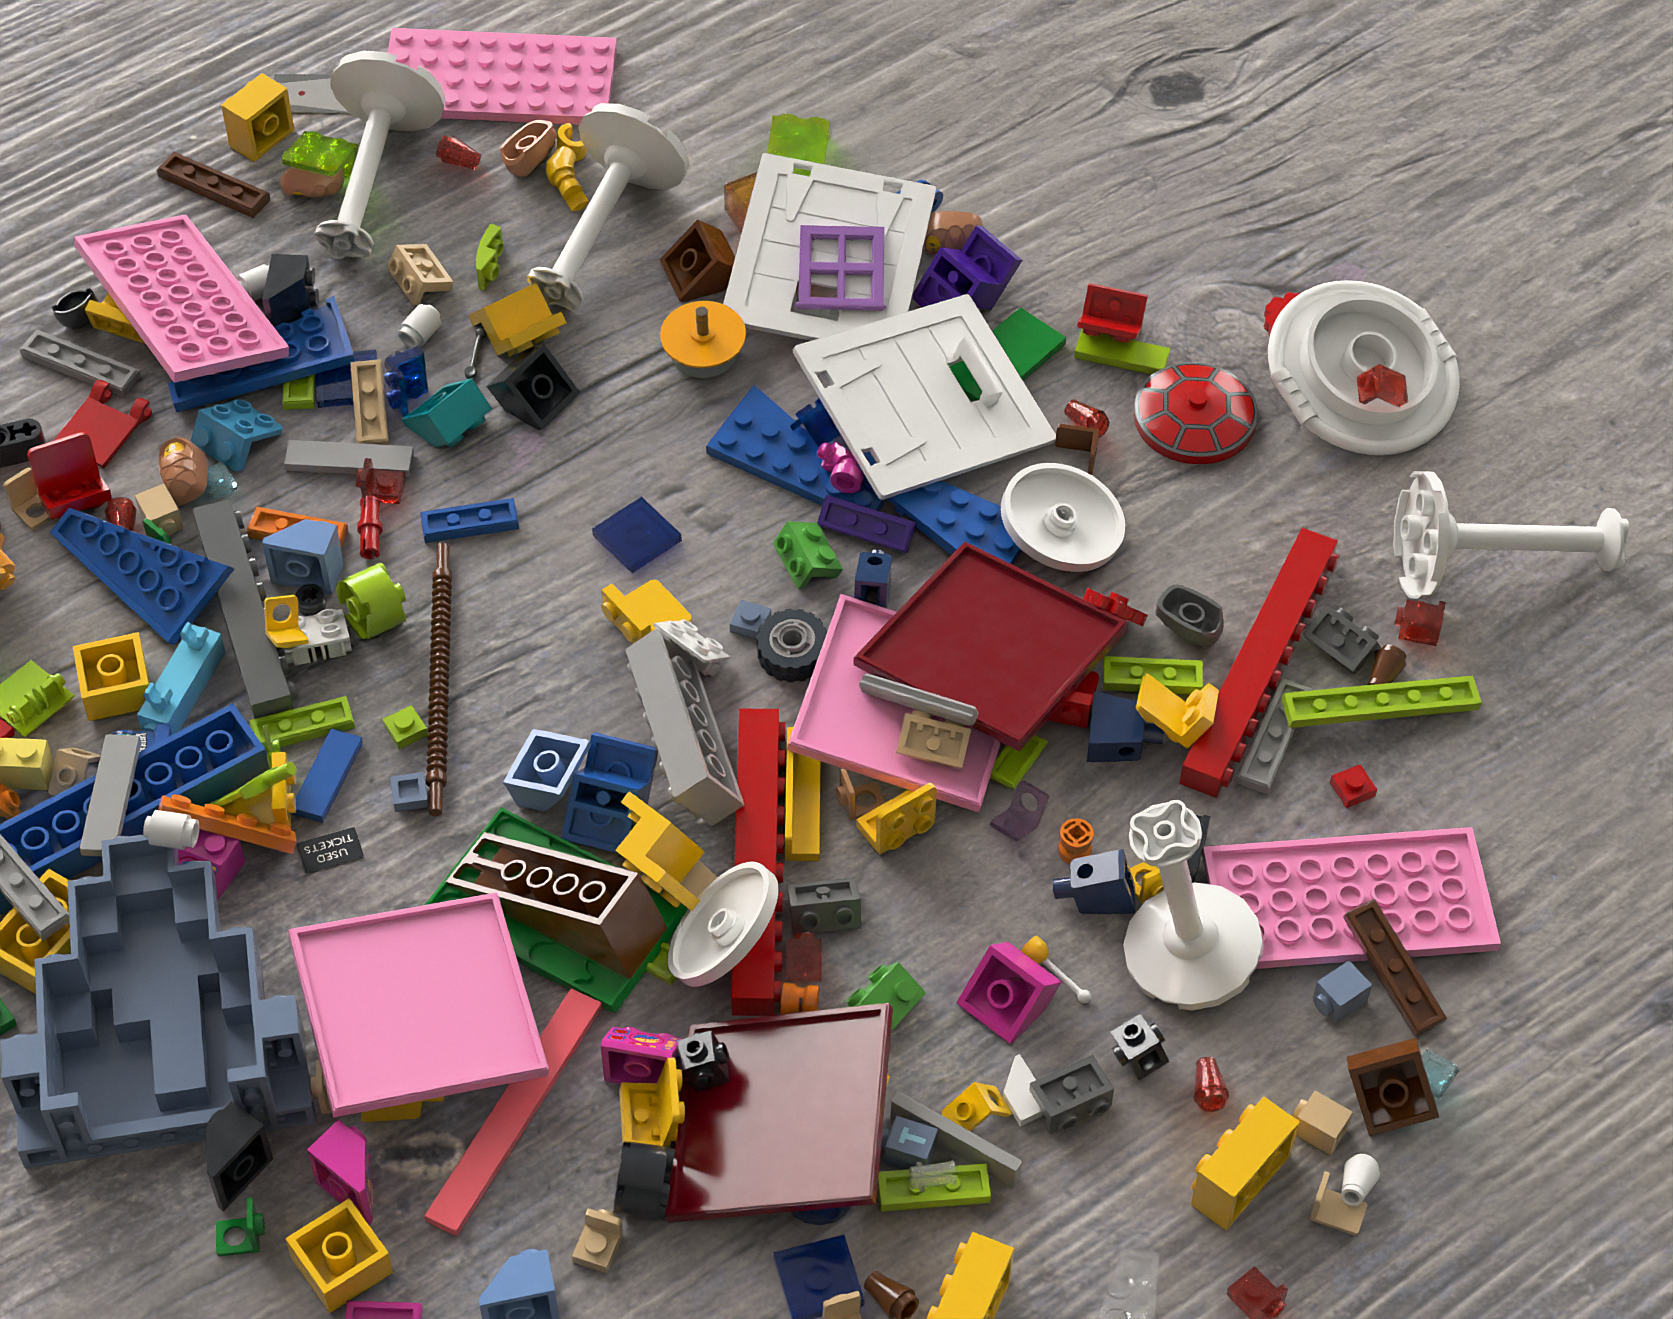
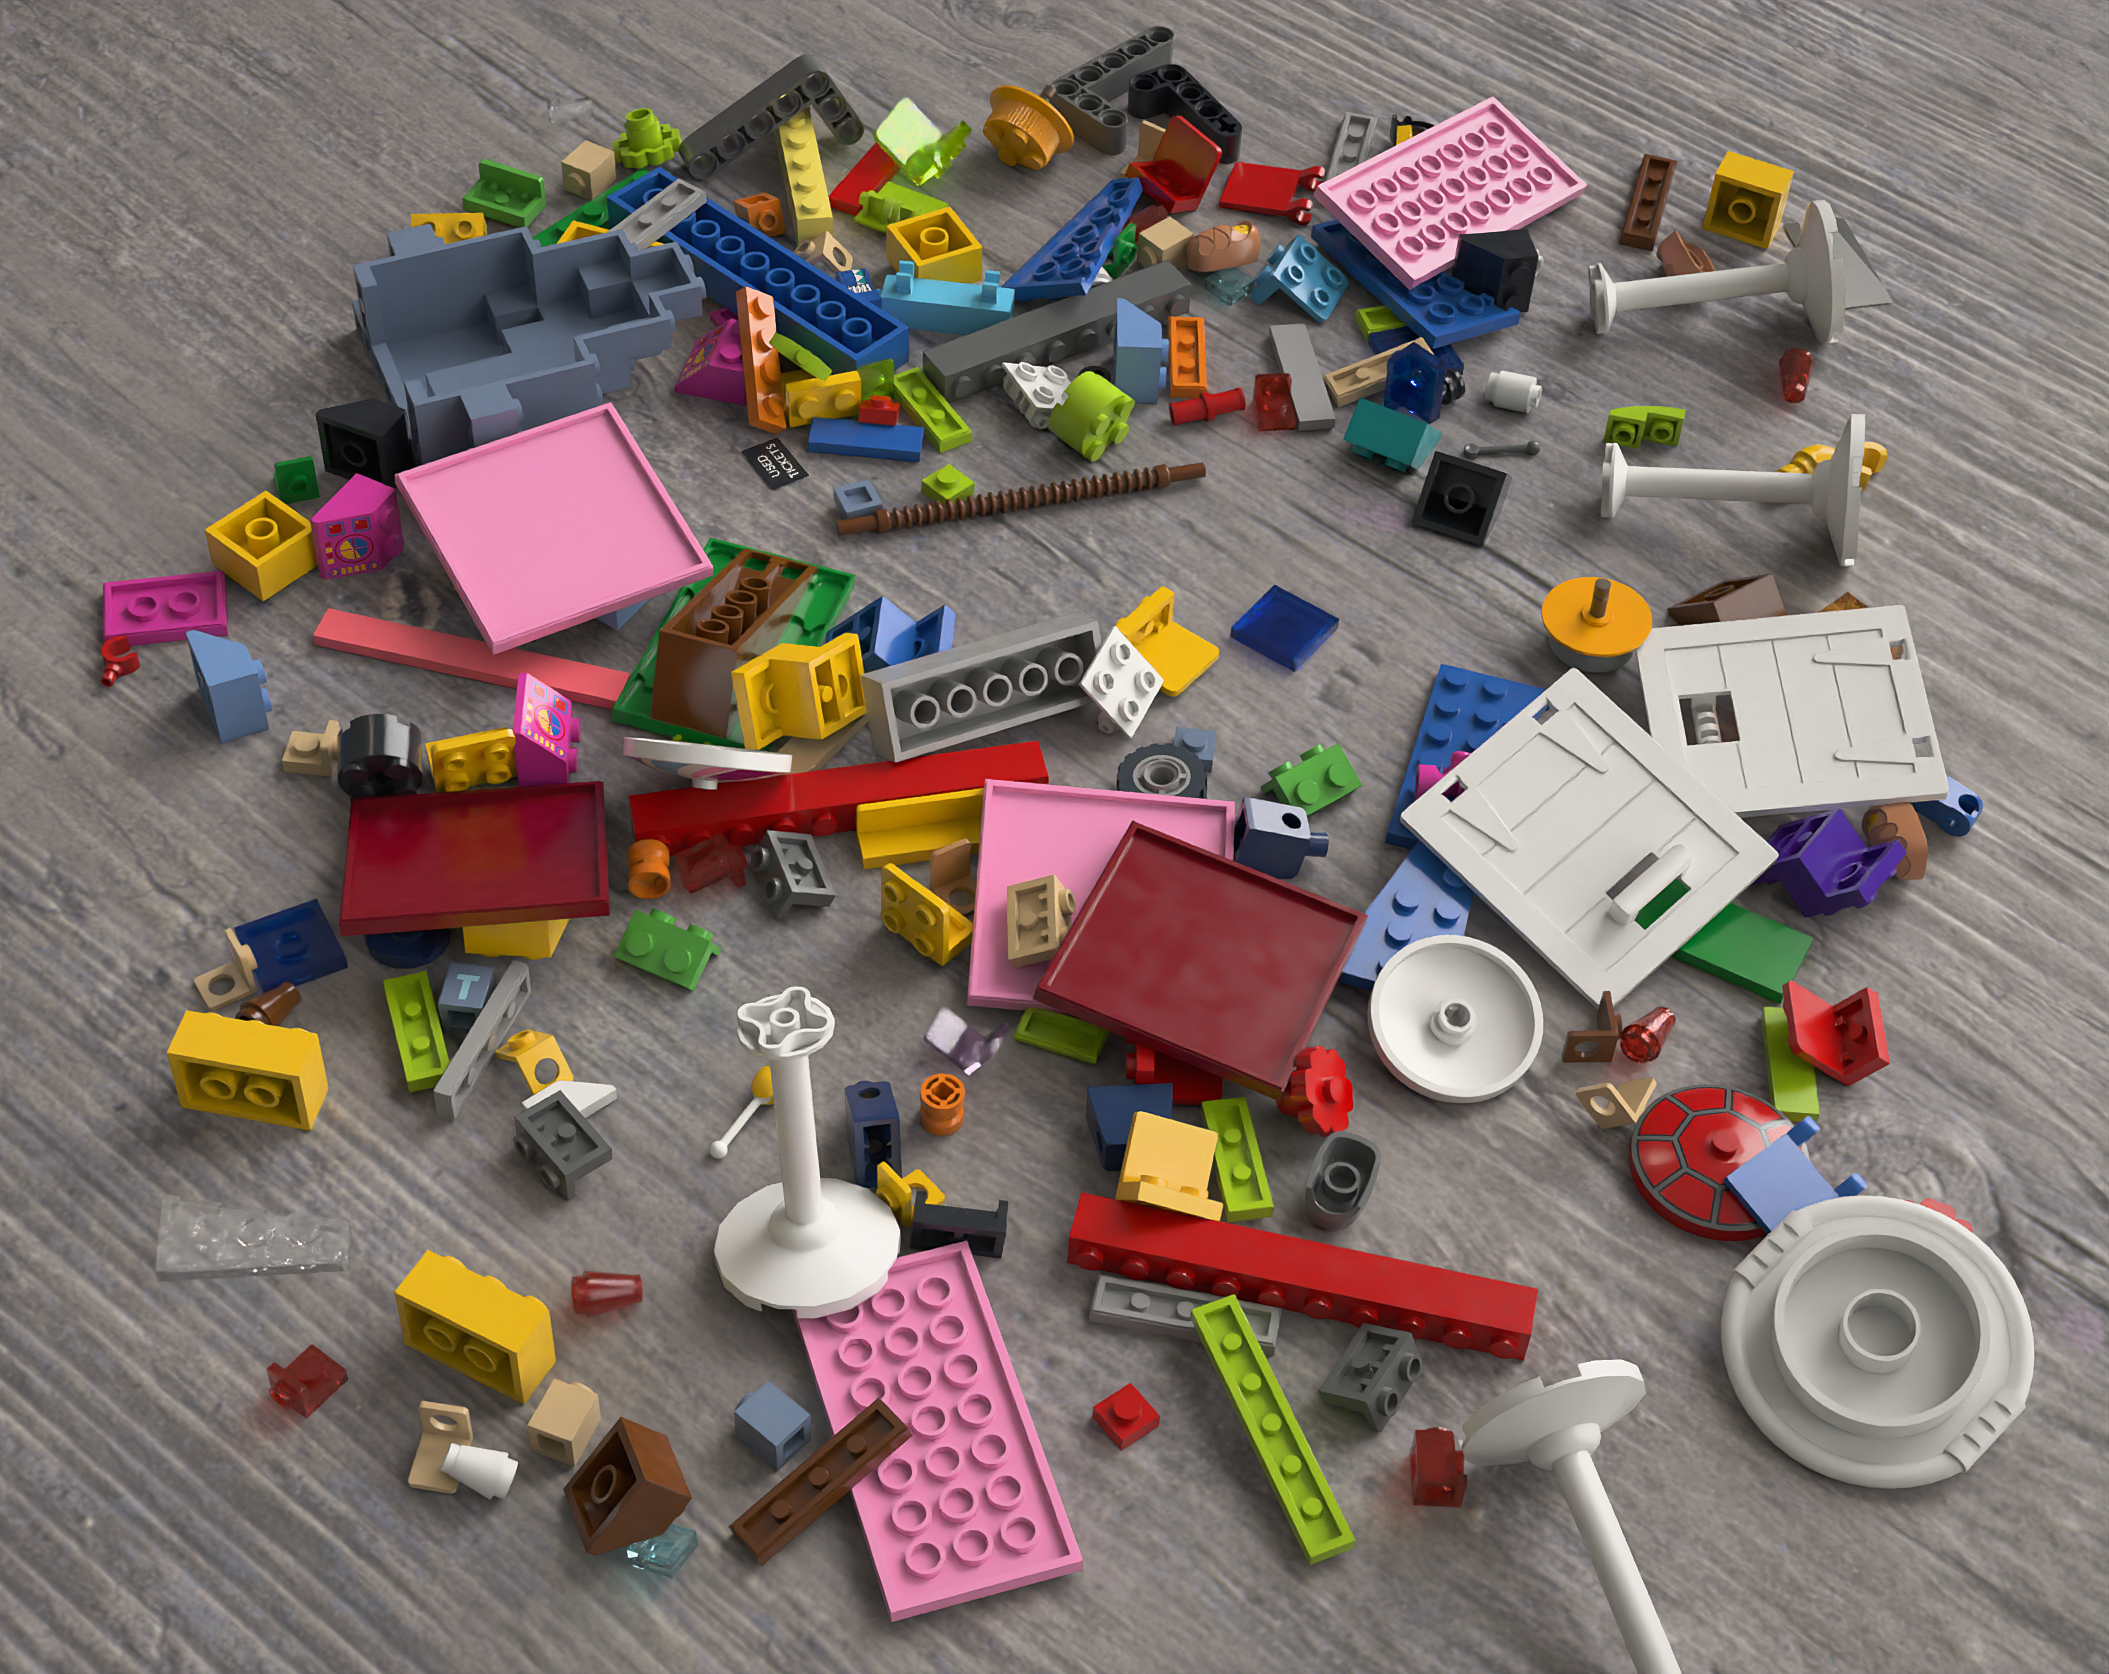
camera: 75 degrees right, 5 degrees down
(110, 792) = (766, 262): light grey tile -> none
(171, 830) = (689, 275): white brick -> none
(287, 632) = (1021, 352): yellow bracket -> none
(304, 755) = (879, 410): none -> red plate
(321, 154) = (1710, 249): clear neon green bracket -> none
(418, 271) = (1597, 376): tan bracket -> none
(469, 520) = (1252, 487): blue tile -> none
(512, 73) = (1946, 395): bright pink plate -> none
(518, 320) = (1548, 459): yellow bracket -> none
(528, 147) = (1824, 424): nougat piece -> none
(545, 769) = (907, 583): medium blue slope -> none
(703, 1060) = (536, 781): black brick -> none
(800, 139) = (1978, 669): clear neon green bracket -> none
(841, 268) = (1779, 759): medium lavender window -> none
(866, 523) = (1377, 831): dark purple tile -> none
(918, 699) = (1079, 886): light grey axle -> none
(931, 1175) = (415, 1004): clear pin -> none
(1008, 991) = (702, 1067): dark pink slope -> none
(1139, 1046) = (638, 1202): black brick -> none
(1143, 446) = (1625, 1103): none -> tan bracket
(1232, 379) = (1785, 1179): none -> flag
(1382, 384) = (1818, 1341): clear red bracket -> none
(1387, 665) = (1338, 1432): reddish brown cone -> none

